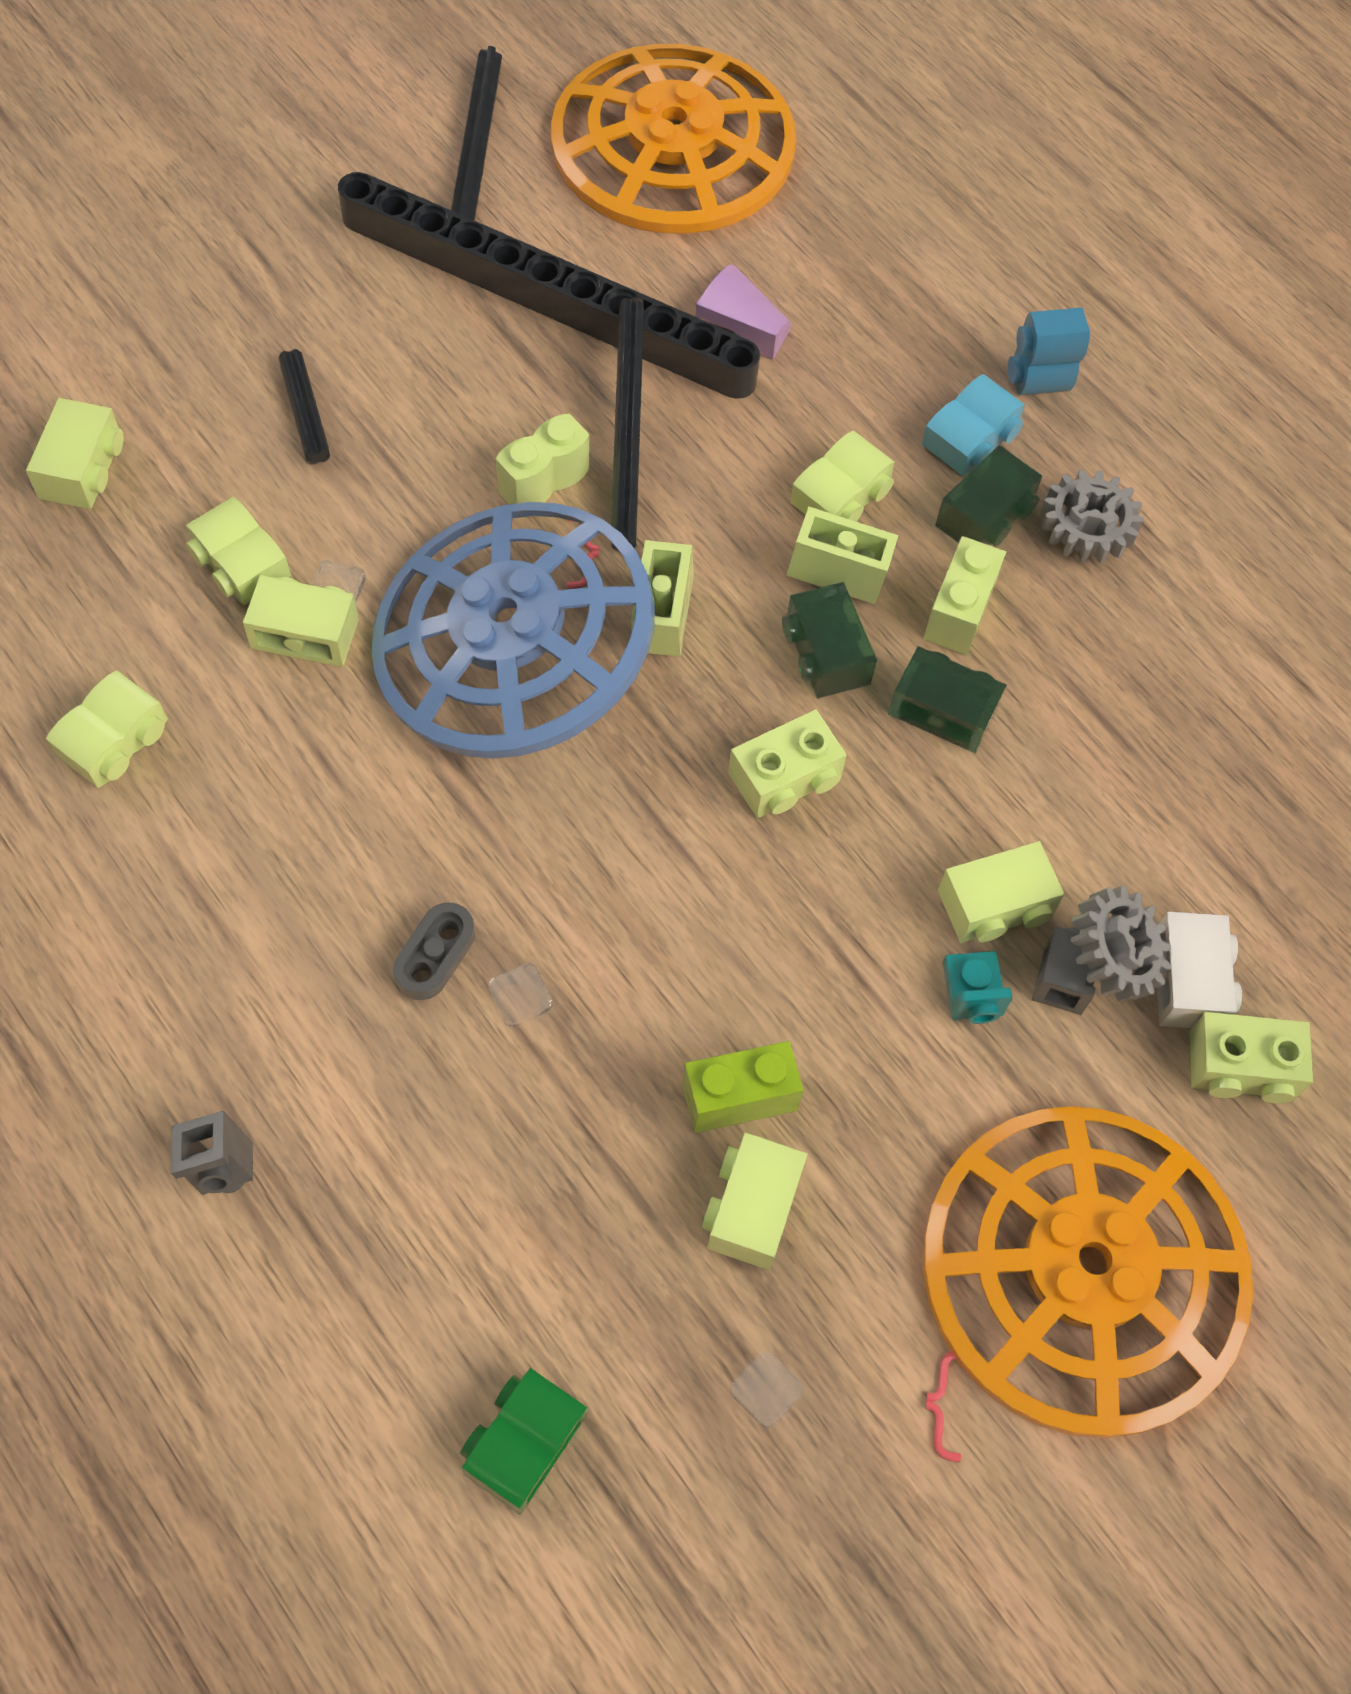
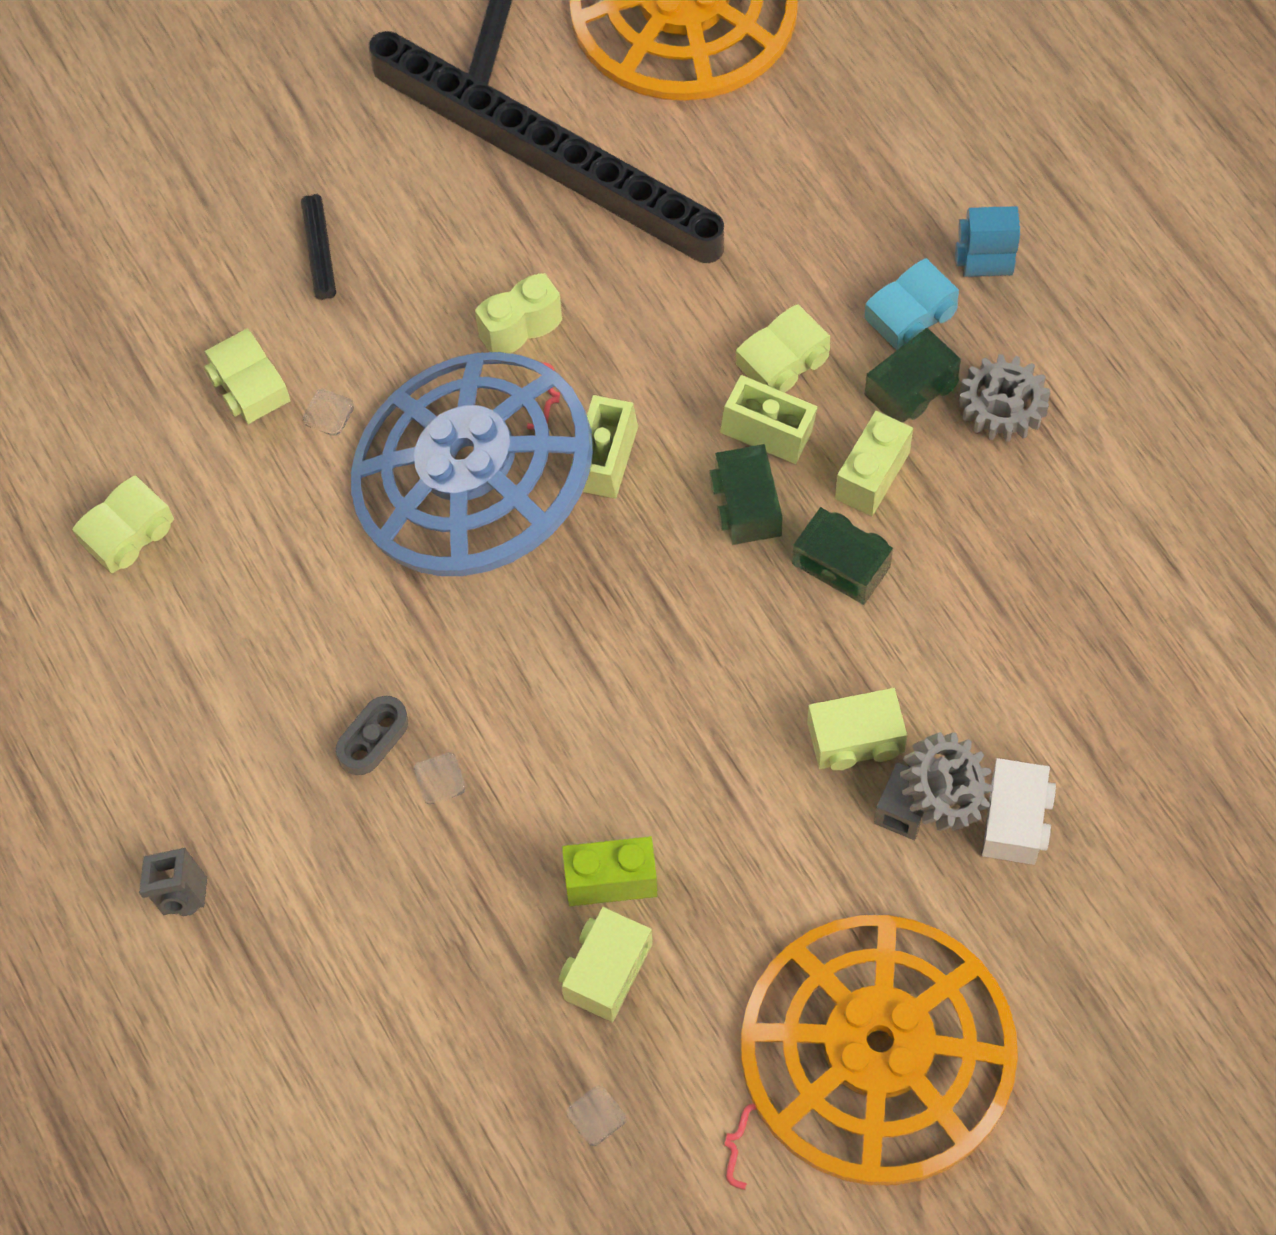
camera: 15 degrees right, 0 degrees up
(75, 453) = (118, 278): yellowish green brick -> none
(301, 620) = (294, 442): yellowish green brick -> none
(523, 1439) = (394, 1130): green brick -> none
(627, 419) = (597, 283): black axle -> none
(742, 308) = (722, 180): lavender slope -> none
(787, 764) = (692, 602): yellowish green brick -> none
(975, 987) = (825, 807): teal bracket -> none
(1250, 1056) = (1050, 888): yellowish green brick -> none

